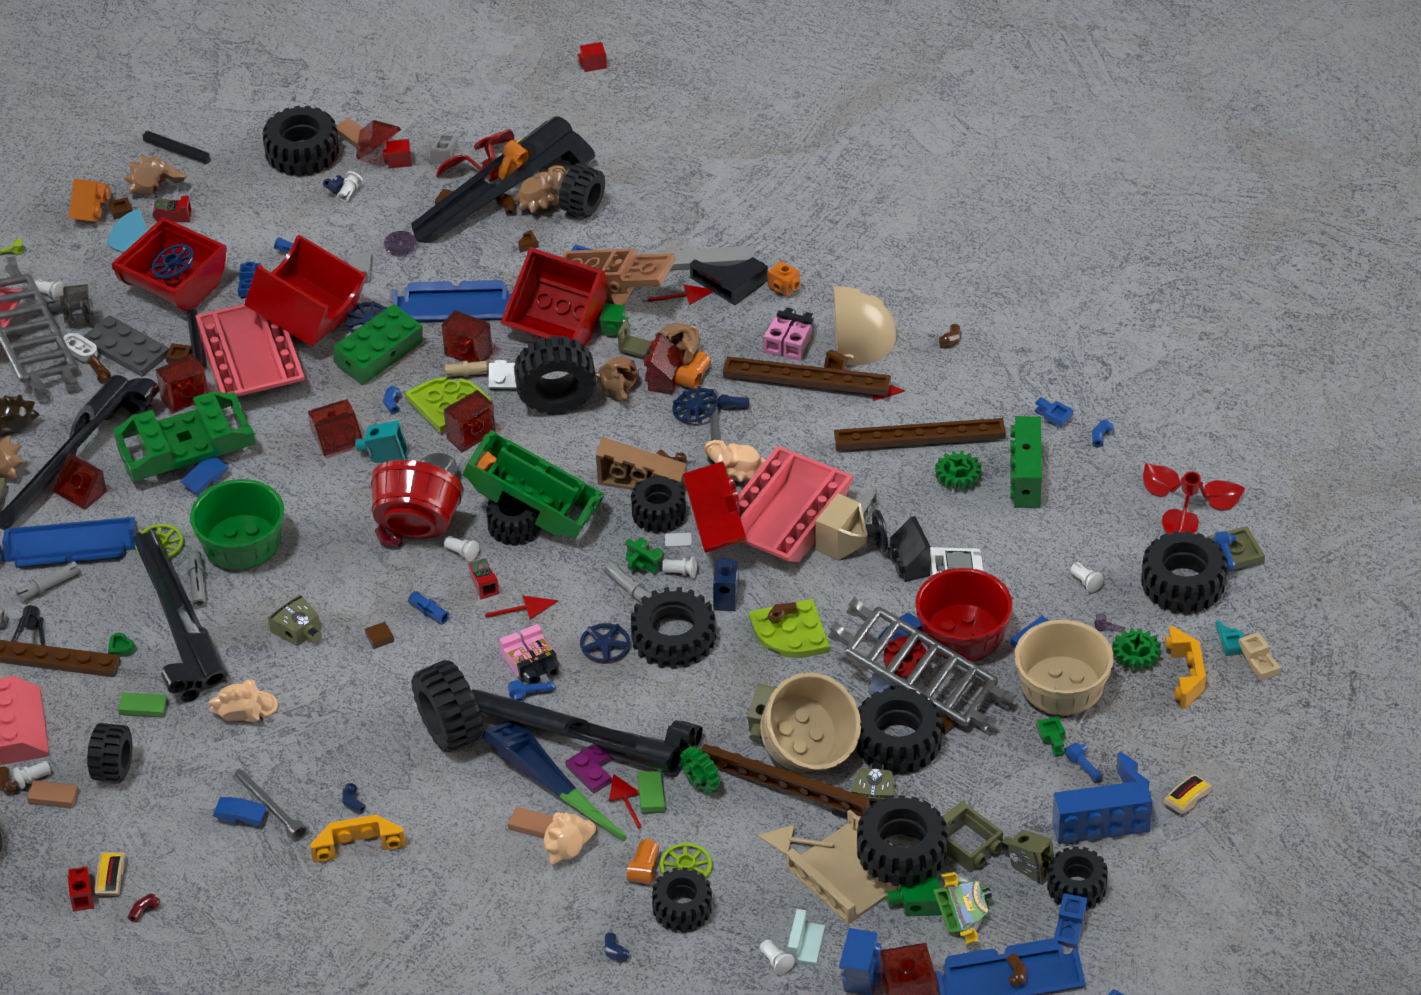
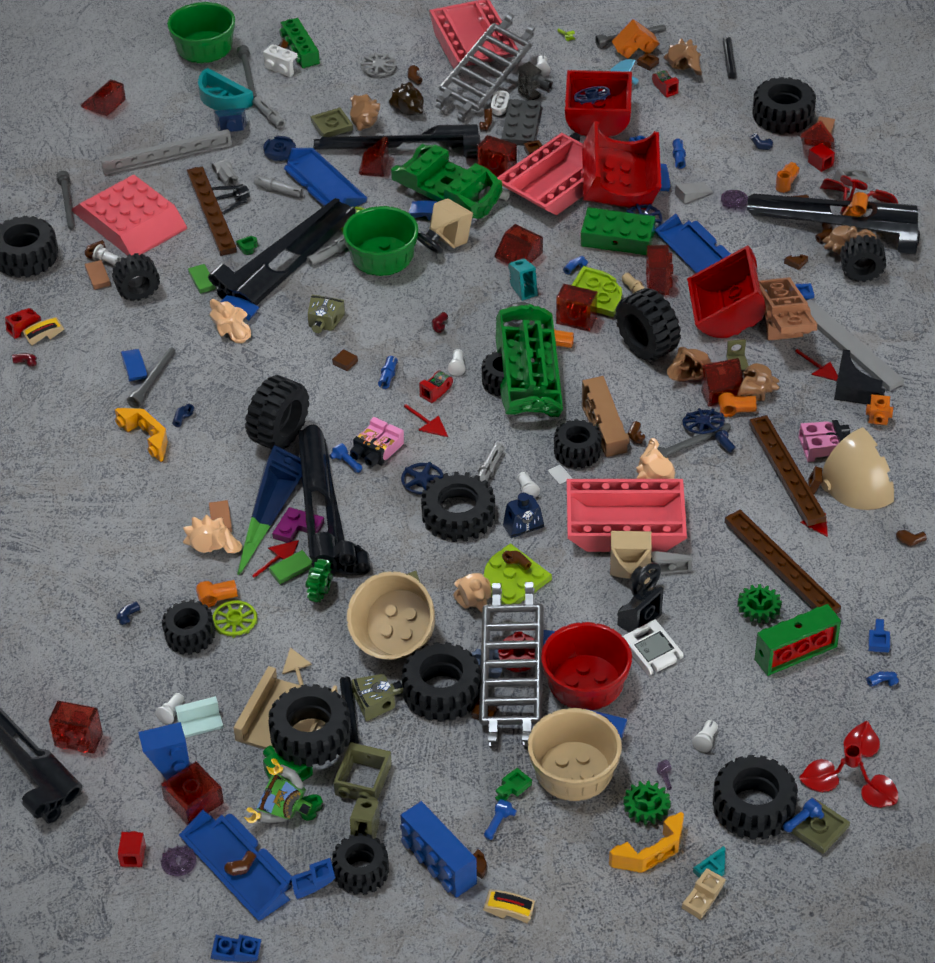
camera: 60 degrees right, 0 degrees up
(54, 225) = (603, 40): none -> dark grey piece
(213, 688) = (250, 308): none -> blue slope
(258, 460) = (448, 224): none -> tan piece
(350, 184) = (767, 149): white pin -> none
(405, 191) = (786, 177): none -> orange piece
(414, 498) = (461, 309): red piece -> none
(612, 319) = (754, 337): green brick -> none
(641, 558) = (517, 459): green hips -> none
(714, 506) = (585, 469): red bracket -> none
(787, 781) = (344, 640): reddish brown plate -> none
(803, 657) = (473, 591): none -> light nougat head
(1128, 769) = (502, 854): blue slope -> none

